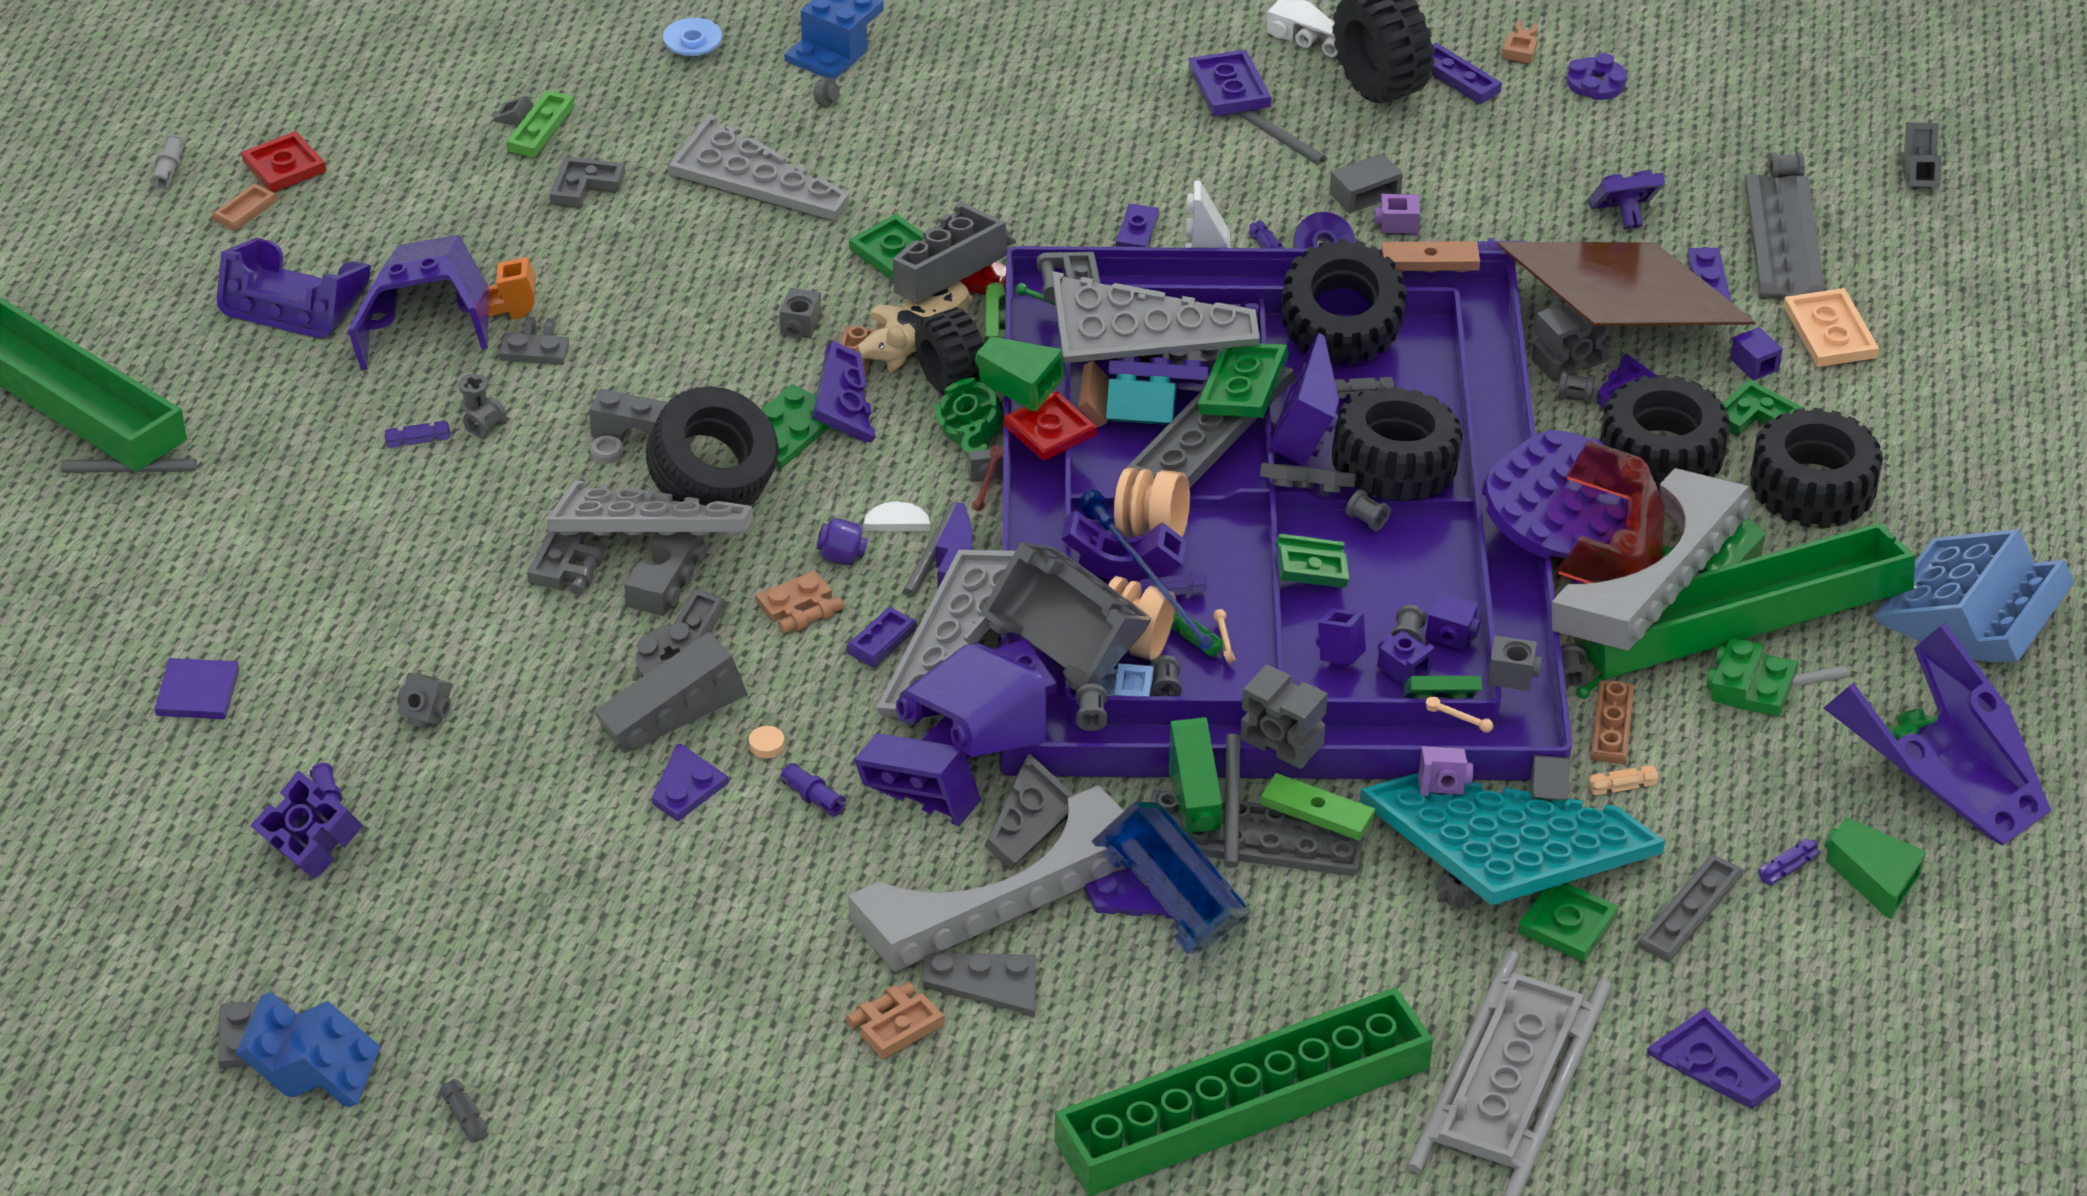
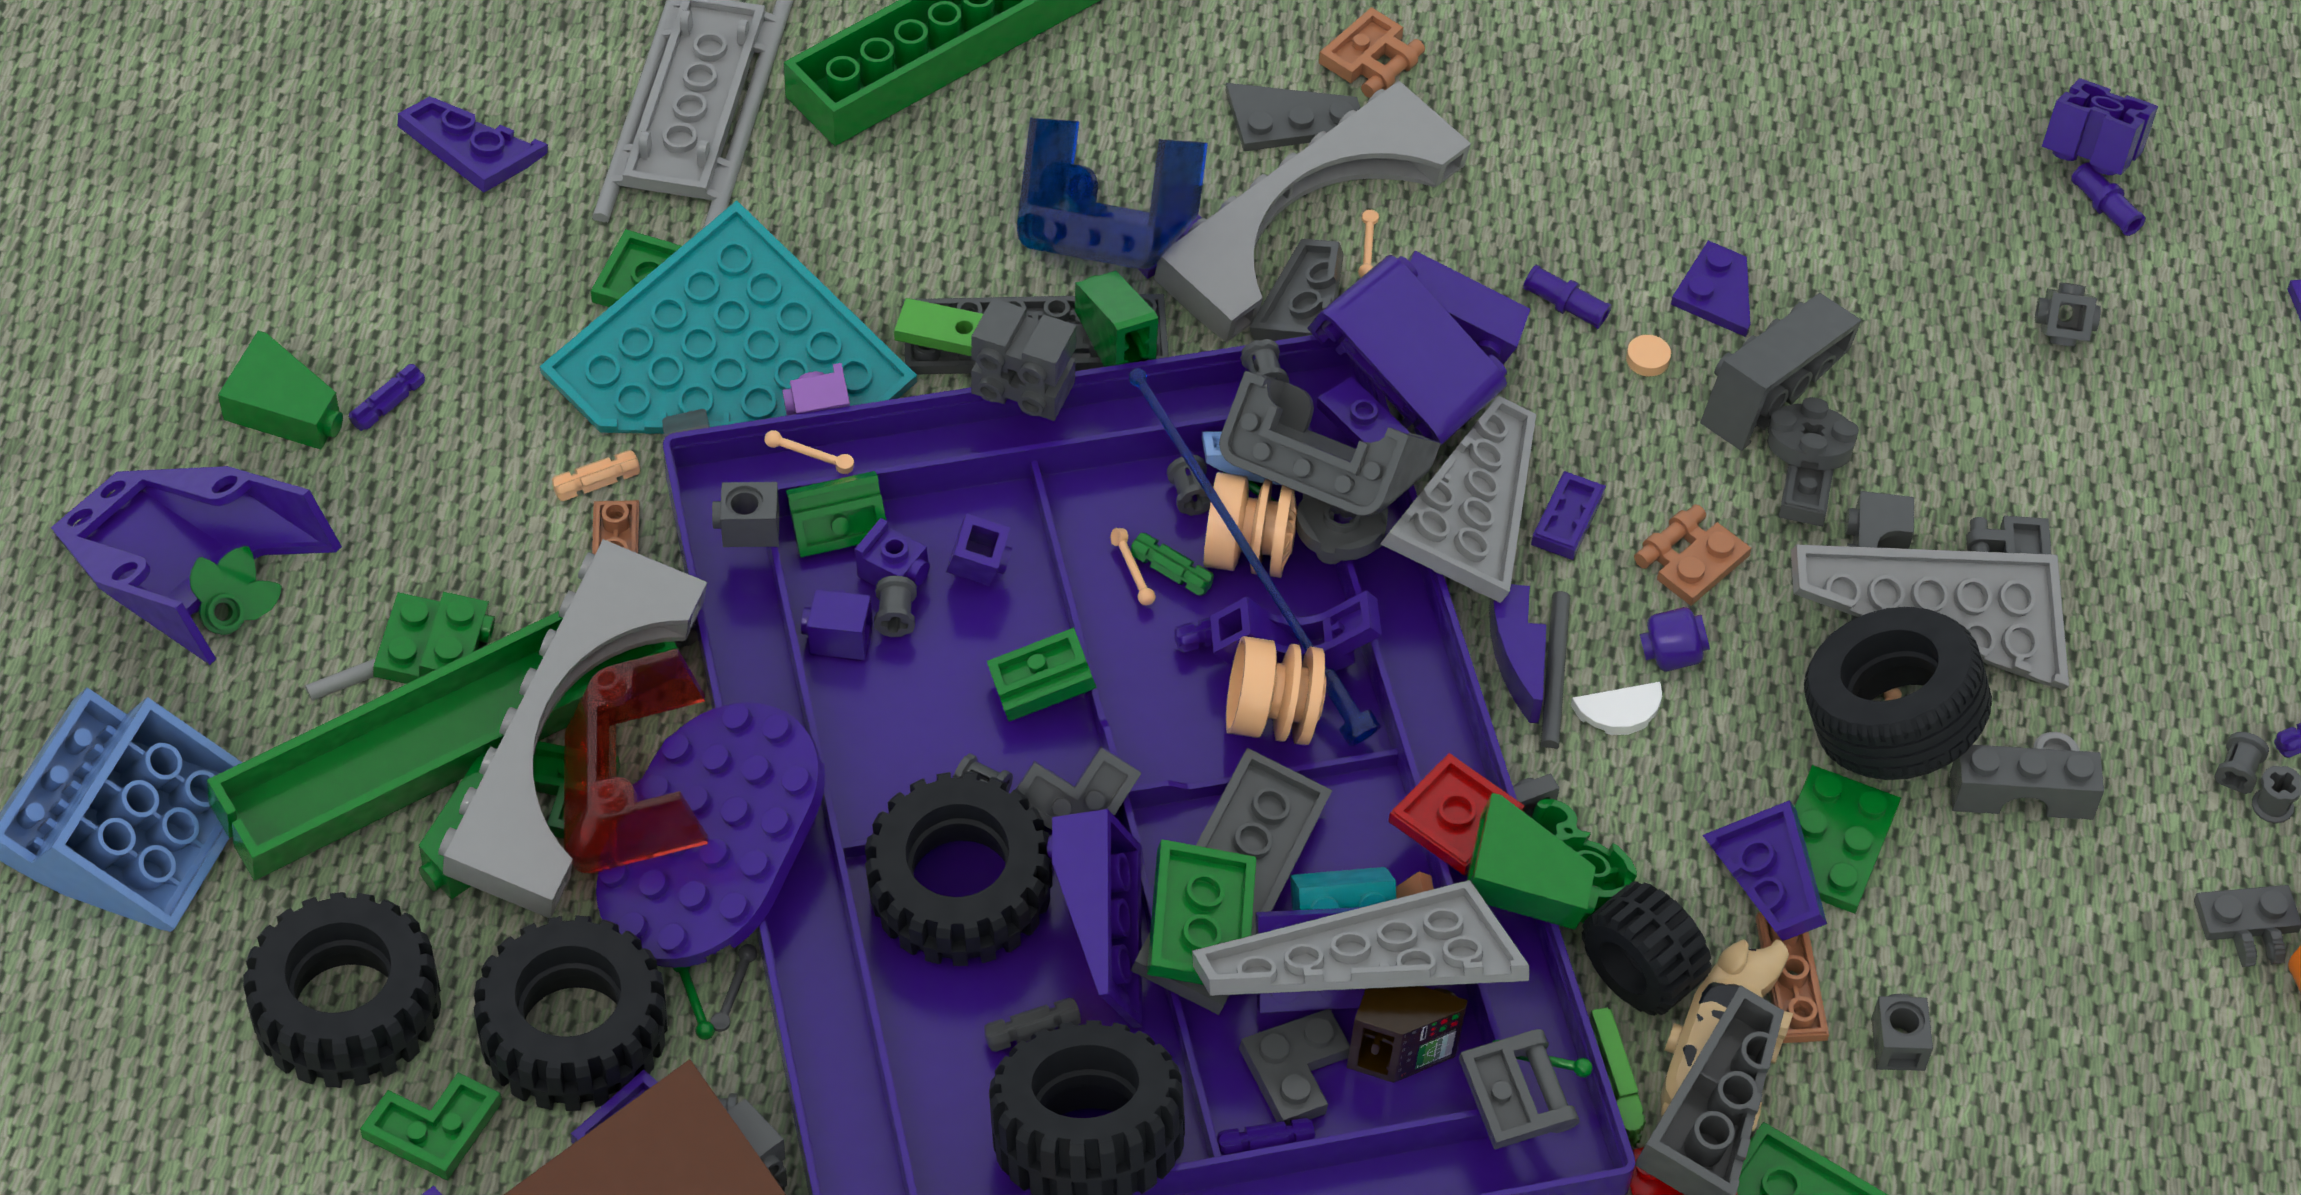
camera: 165 degrees right, 10 degrees up
(966, 844) = (1370, 218): none -> light nougat hinge
(996, 453) = (1521, 755): clear red hinge -> none
(1232, 794) = (1066, 313): dark grey bar -> none
(1690, 908) = (504, 325): dark grey tile -> none

